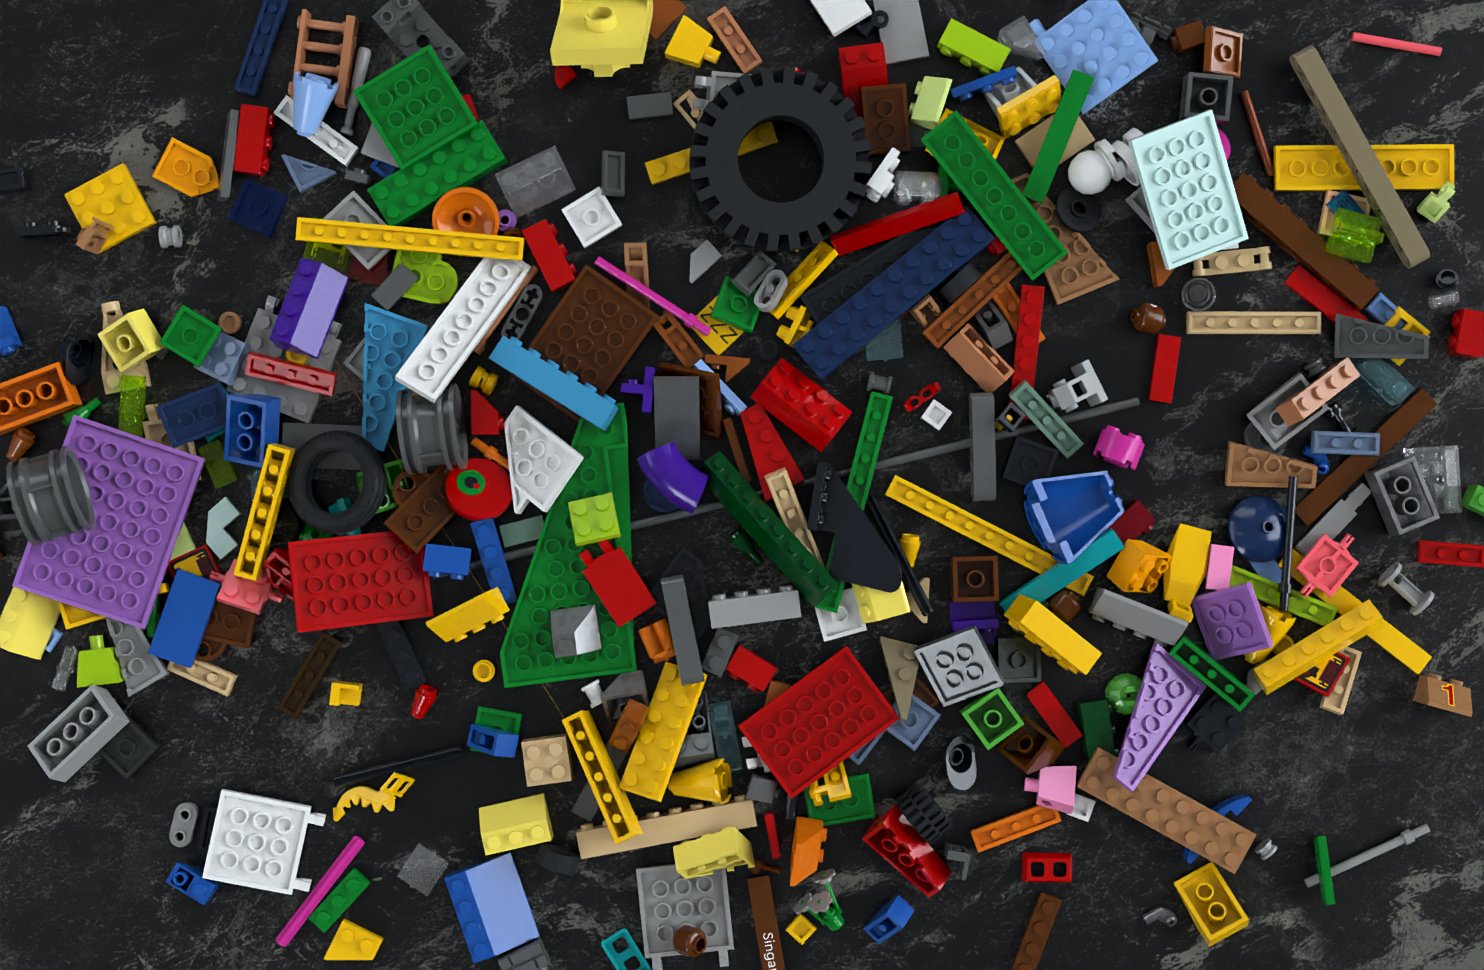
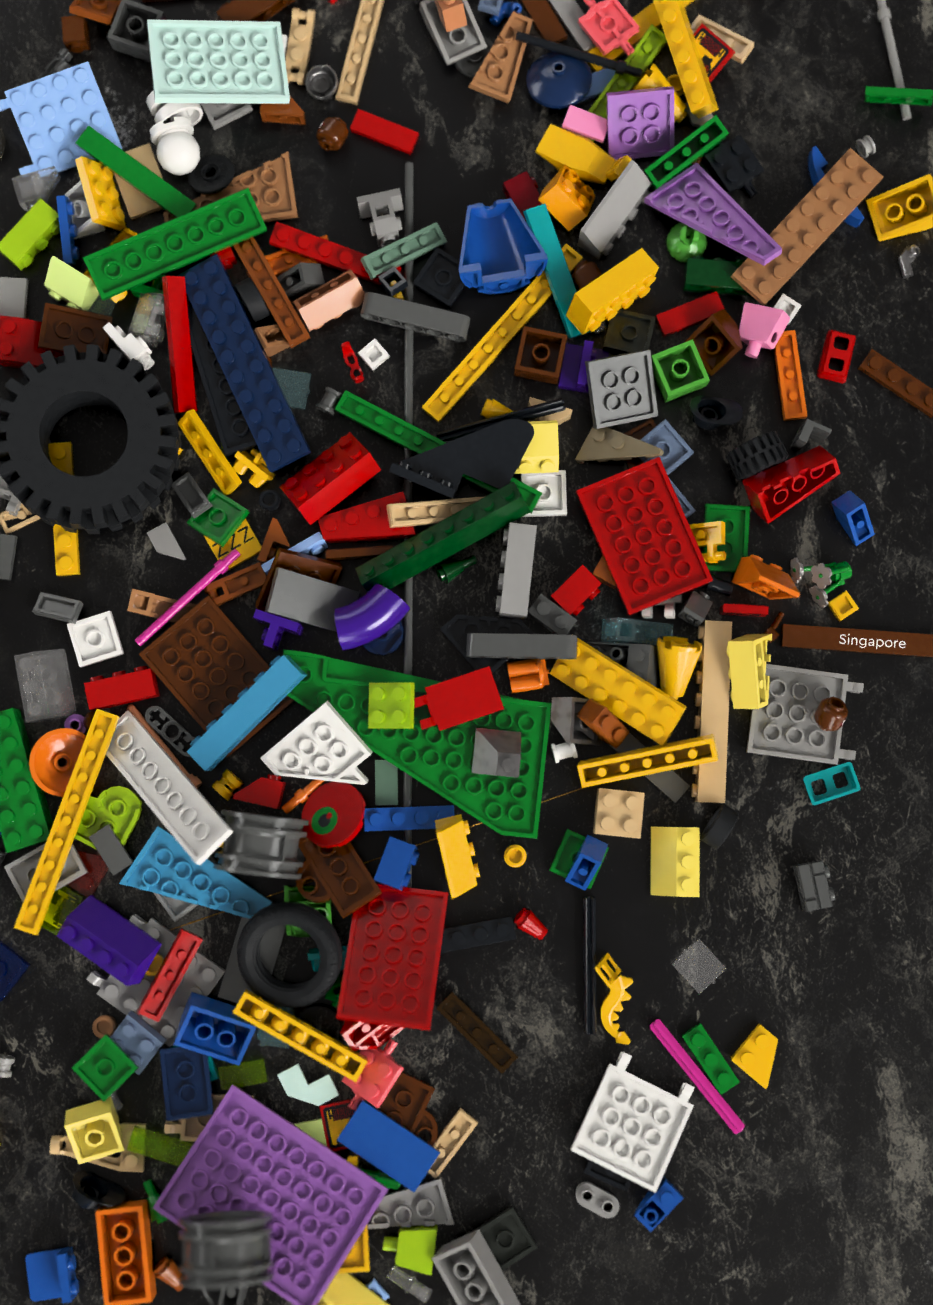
camera: 75 degrees left, 5 degrees down
(345, 693) = (504, 1000): yellow panel -> none
(491, 907) = (752, 905): slope -> none
(770, 291) = (213, 483): light grey plate -> none
(1119, 448) = (448, 188): dark pink brick -> none

